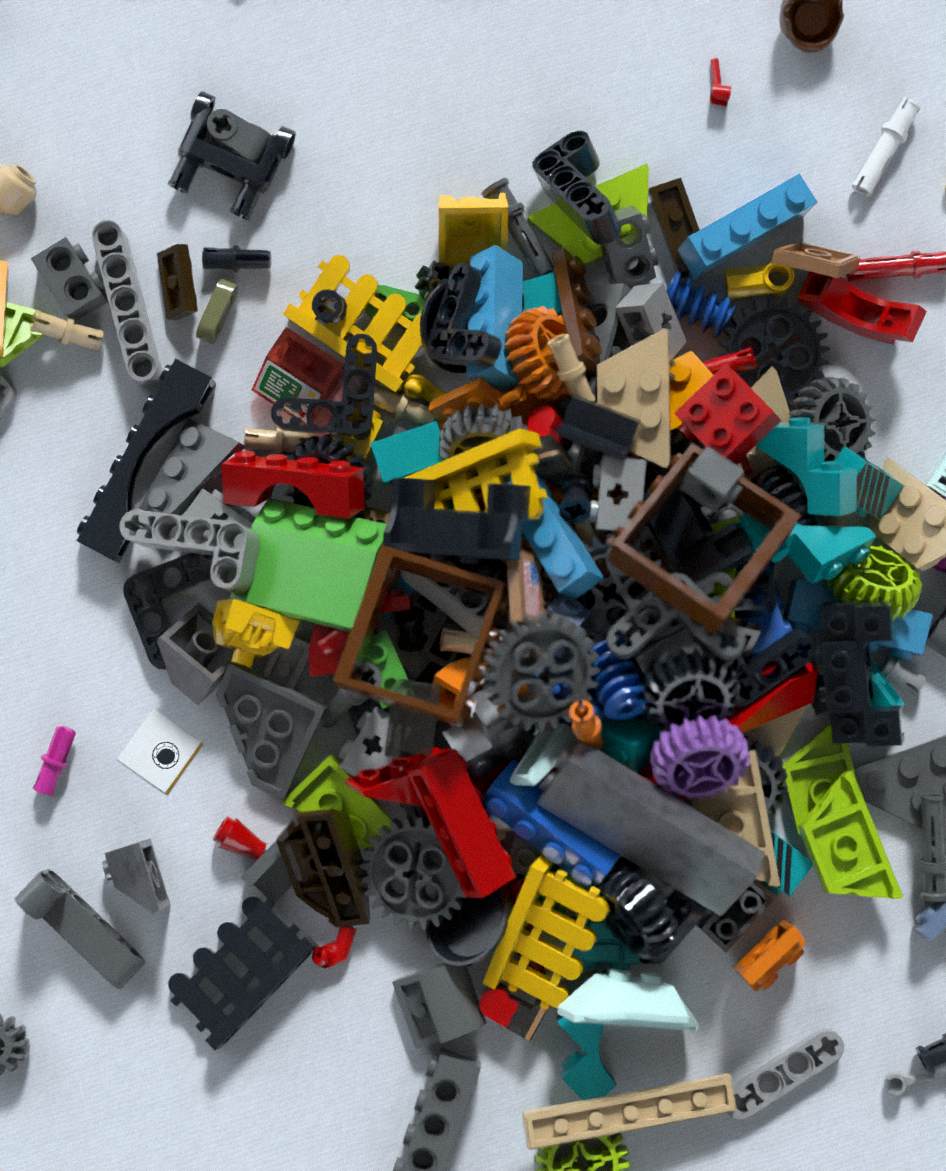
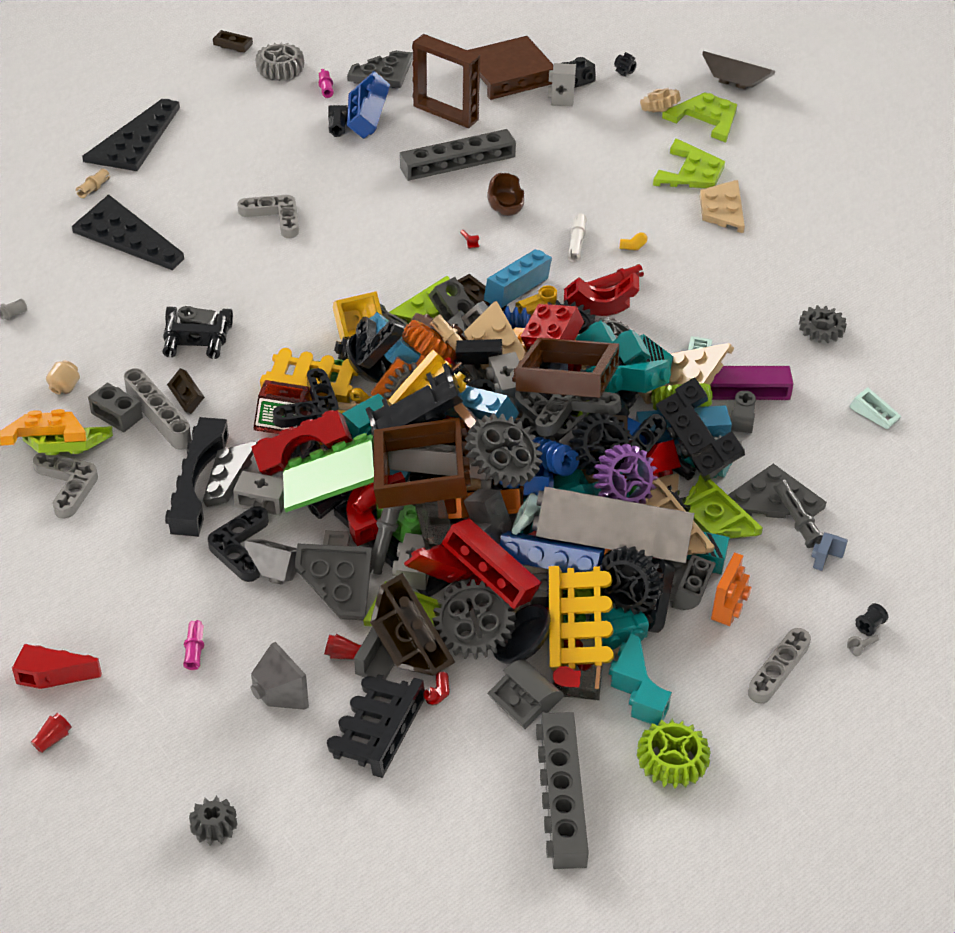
camera: 20 degrees left, 40 degrees down
(66, 330) = (122, 427): tan pin -> none
(81, 926) = (245, 728): dark grey beam -> none
(160, 751) = (266, 624): white sticker -> none
(188, 540) = (248, 482): light grey beam -> none
(217, 311) = (216, 397): olive beam -> none
(235, 258) = (219, 373): black axle -> none
(250, 630) = (303, 520): yellow brick -> none
(340, 306) = (287, 363): black bush -> none
(563, 176) = (409, 282): black beam -> none
(586, 724) = (546, 476): orange pin -> none
(628, 1002) = (661, 637): light aqua wedge -> none
(628, 1111) = (687, 703): tan tile -> none
(713, 480) = (552, 343): dark grey brick -> none
(816, 259) = (564, 275): medium nougat tile -> none
(847, 845) = (746, 523): lime wing -> none

